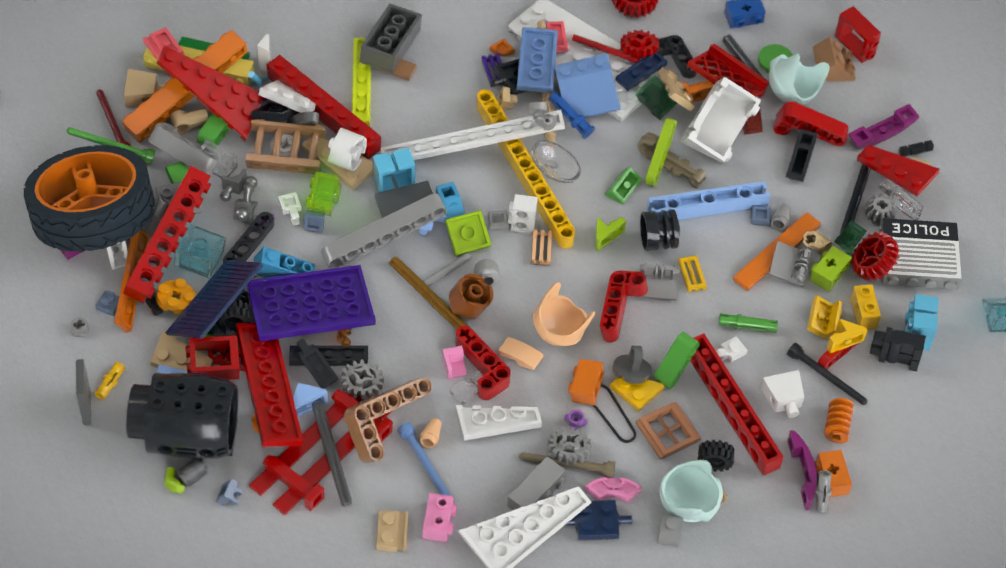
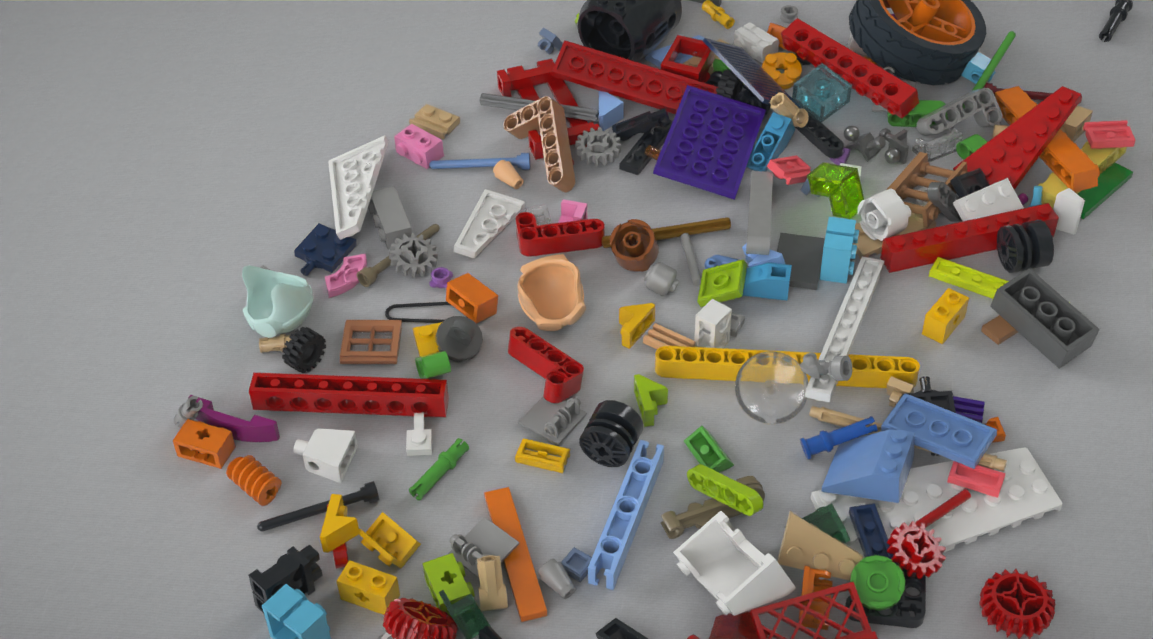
camera: 125 degrees right, 10 degrees down
(144, 330) = (755, 41): none -> white brick
(251, 253) = (784, 106): none -> tan piece
(310, 237) = (789, 168): none -> coral plate
(321, 66) = (1025, 246): none -> black wheel
(416, 96) = (945, 315): none -> yellow brick
(444, 252) = (718, 260): none -> medium blue arm
(536, 268) = (635, 322): none -> yellow slope
(674, 56) = (878, 582): none -> bright green tile

